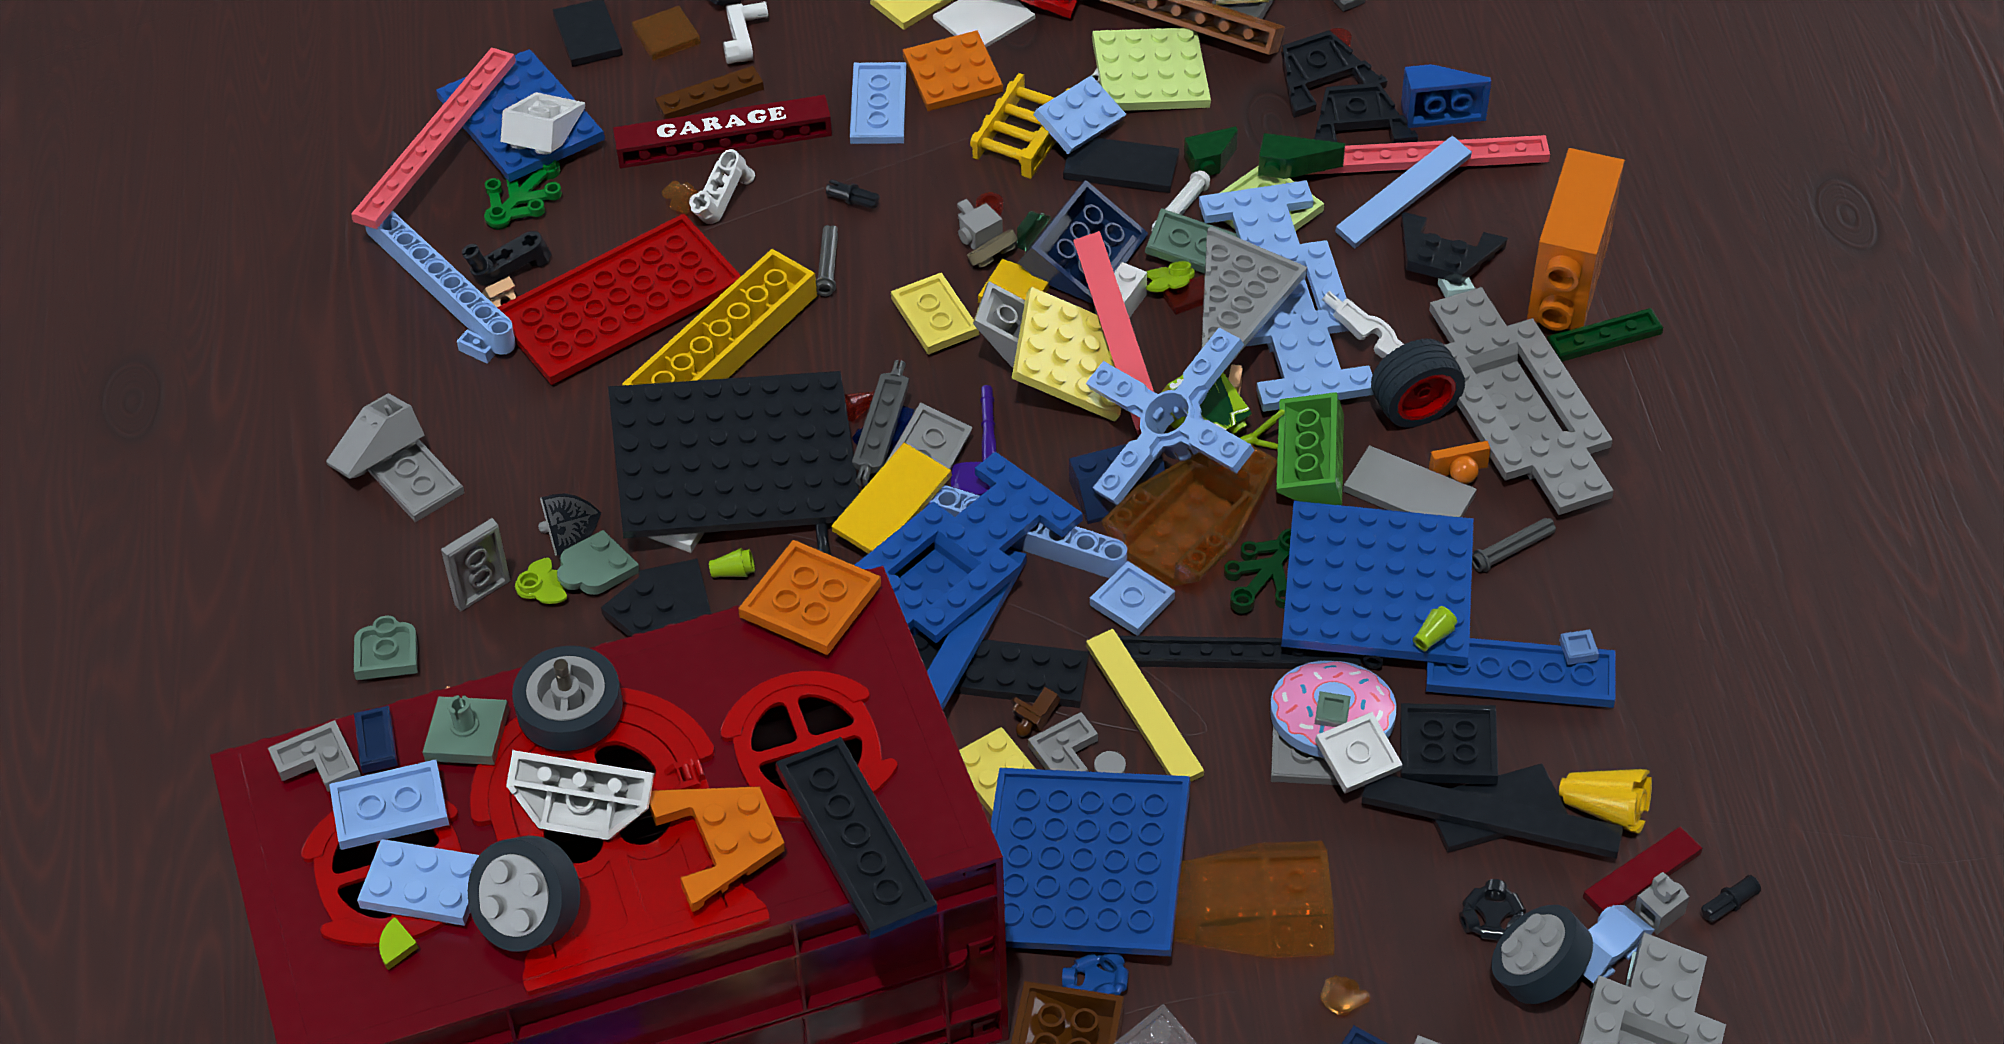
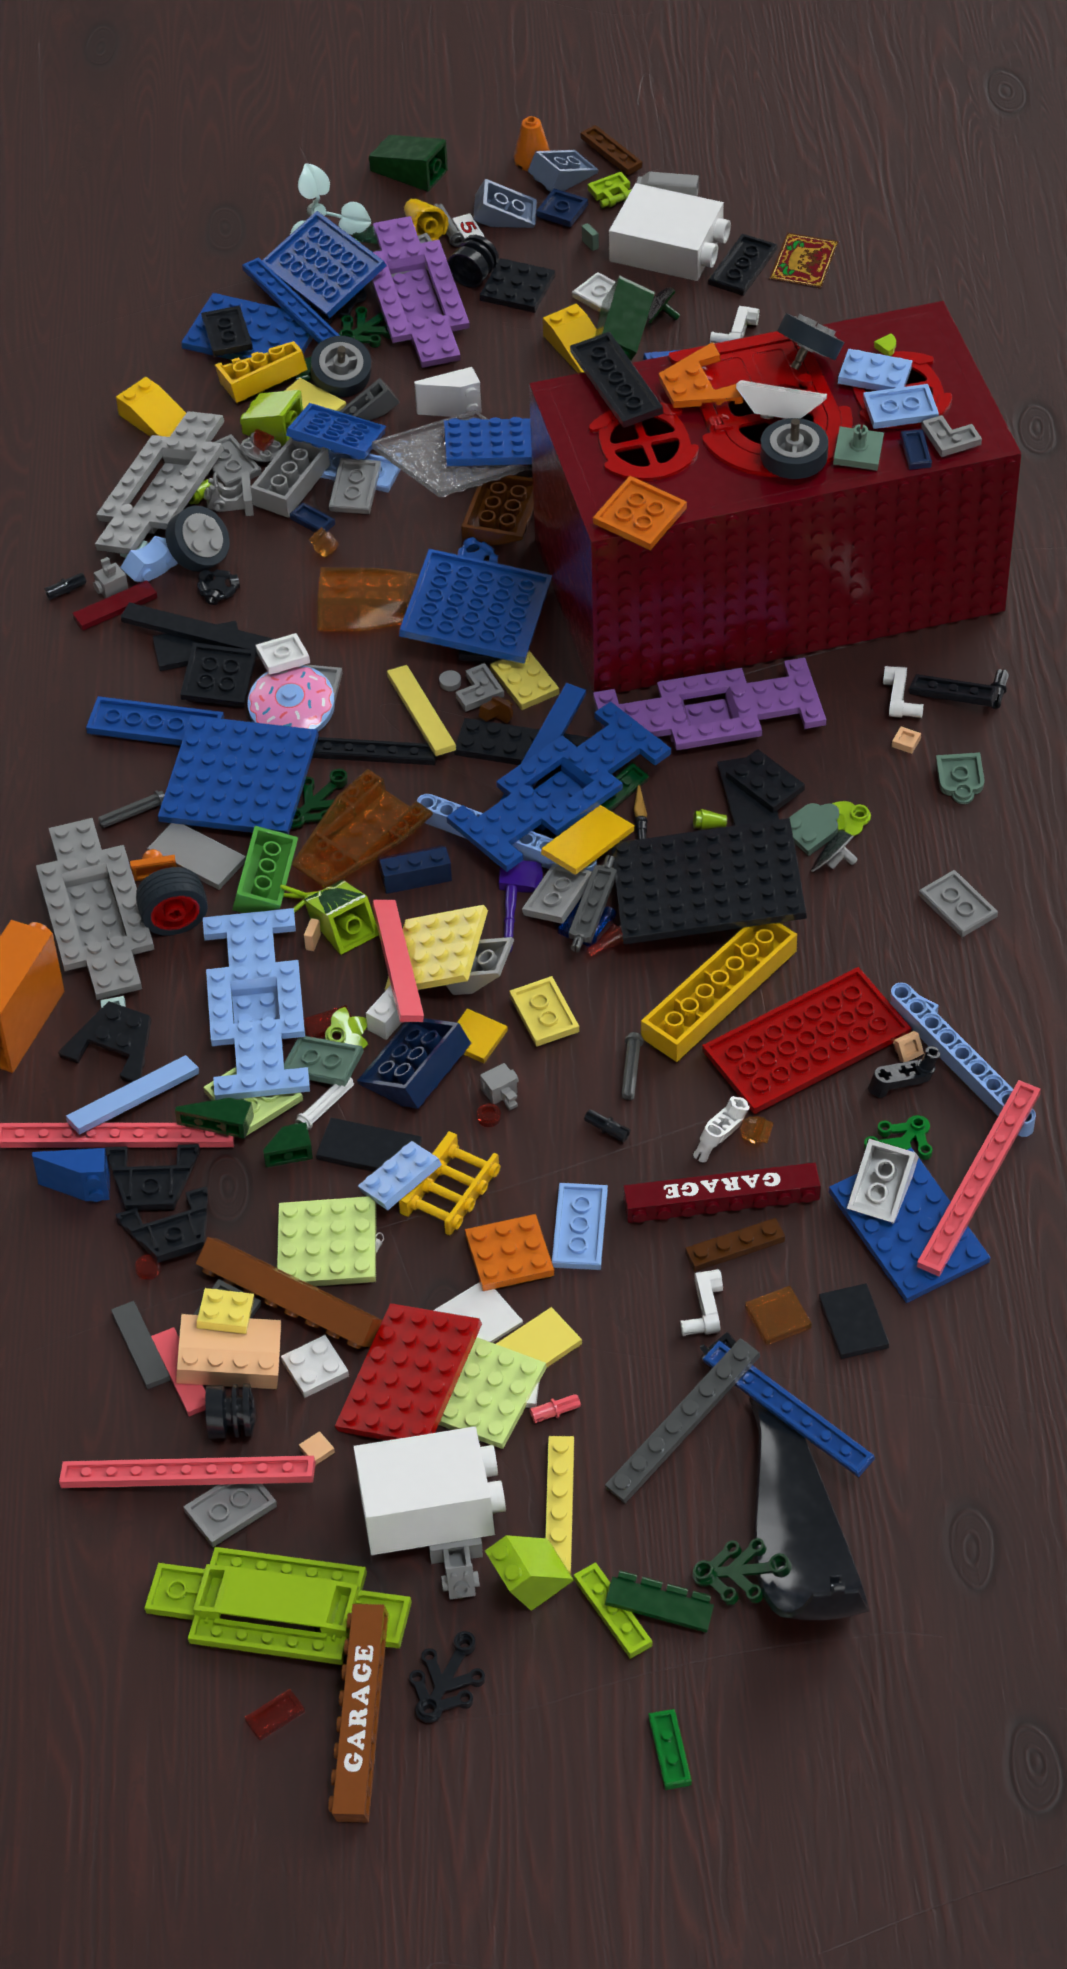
camera: 175 degrees left, 0 degrees up
(375, 435) = (990, 915): light grey slope -> none
(476, 564) = (897, 798): light grey tile -> none
(1001, 243) = (488, 1062): dark tan plate -> none
(1031, 228) = (454, 1084): clear green tile -> none
(1132, 598) = (417, 780): light blue plate -> none
(1156, 416) = (382, 855): light blue piece -> none
(1243, 285) = (292, 973): light grey wing -> none
(1332, 709) = (294, 677): sand green tile -> none
(1363, 325) = (190, 960): white piece -> none
(1436, 627) = (210, 718): lime cone -> none
(1579, 647) = (111, 726): medium blue tile -> none
(1610, 795) = (122, 635): yellow cone -> none

